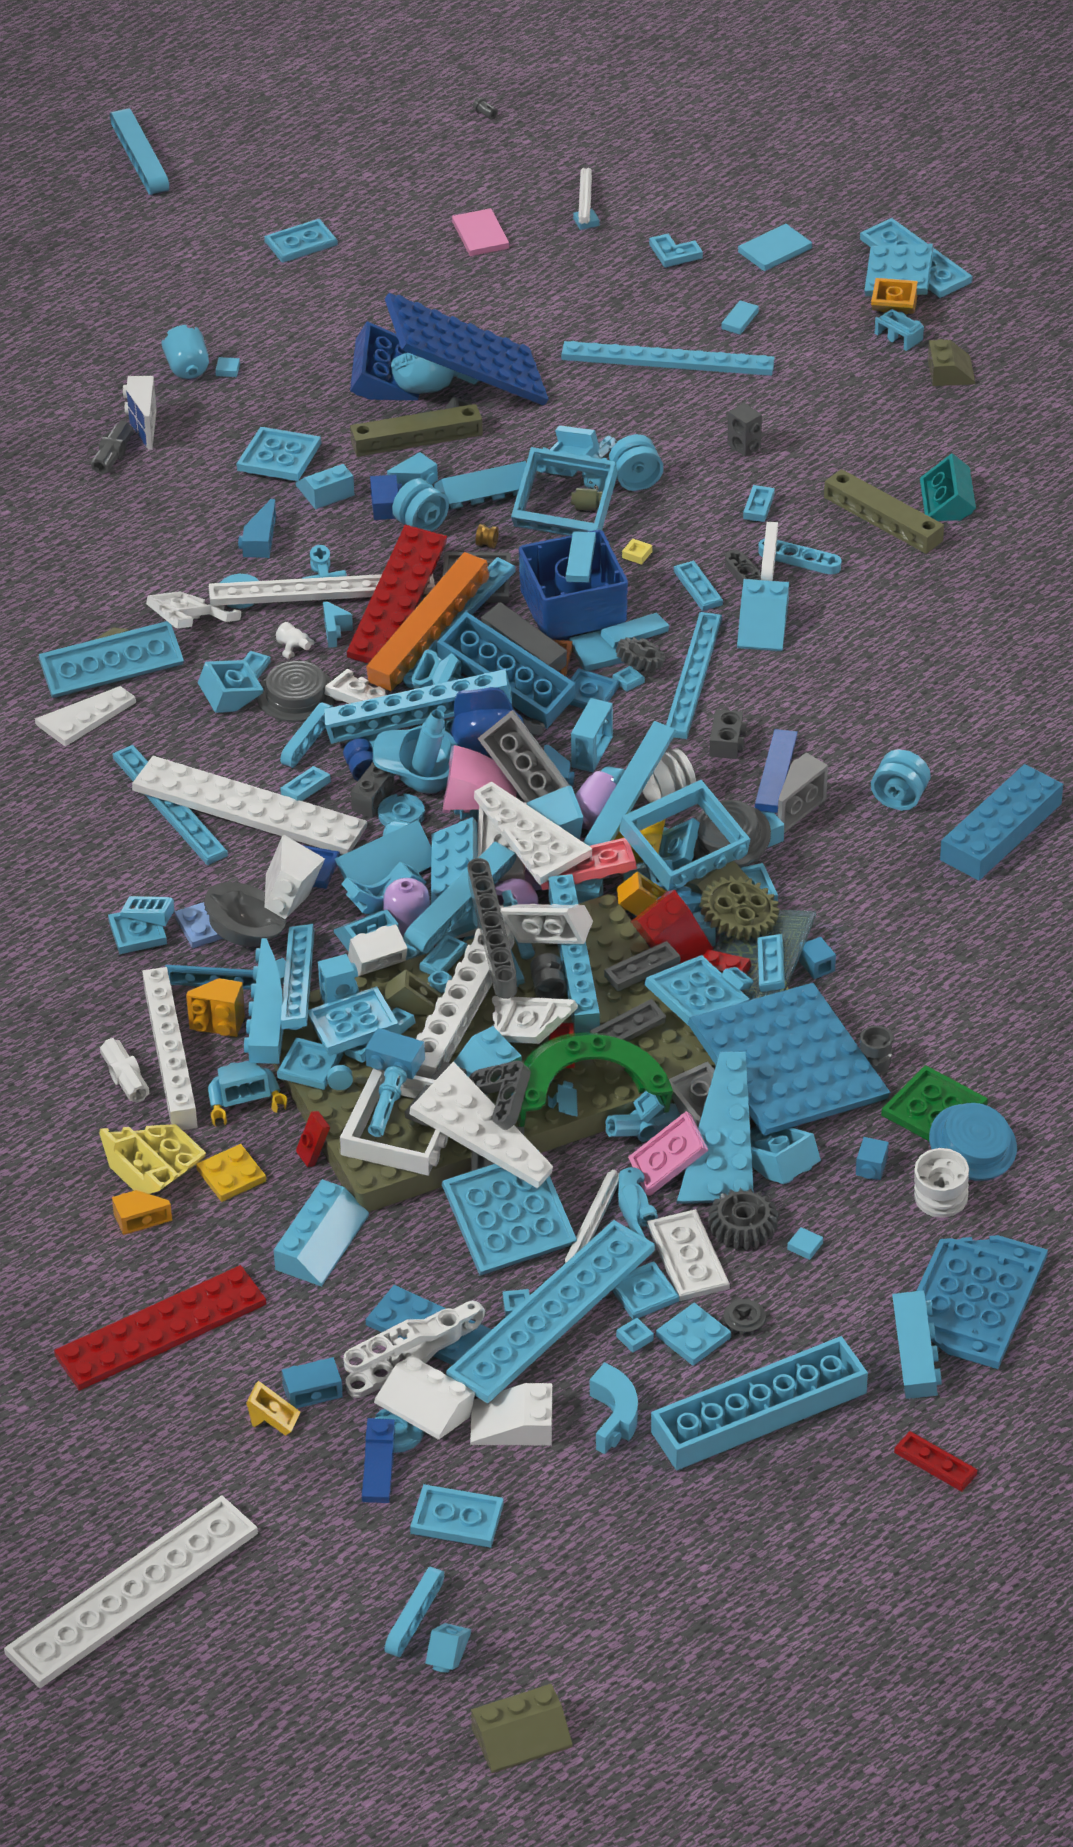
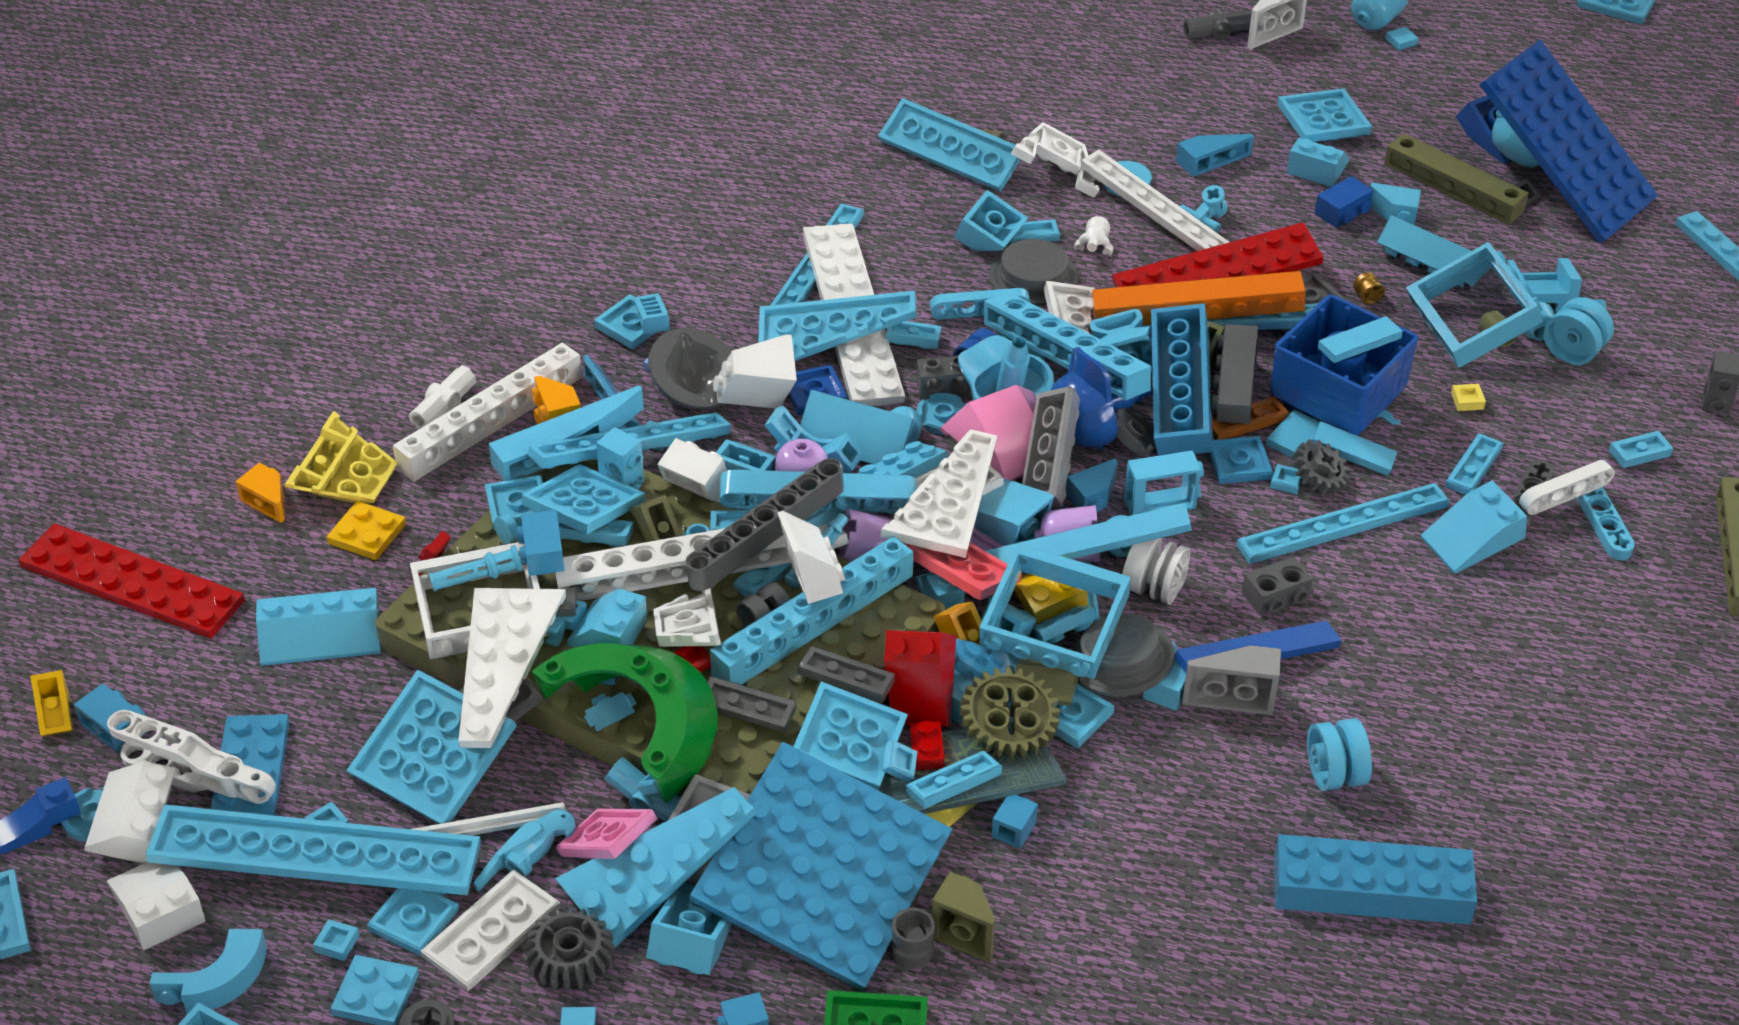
camera: 55 degrees right, 0 degrees up
(82, 717) = (870, 166): white wing -> none
(242, 1084) = (467, 476): medium azure torso -> none
(257, 827) = (833, 322): none -> medium azure wing
(336, 621) = (1141, 248): medium azure slope -> none
(420, 505) = (1347, 224): medium azure wheel -> none
(513, 1079) = (567, 637): dark grey beam -> none
(886, 1008) = (964, 917): none -> olive slope

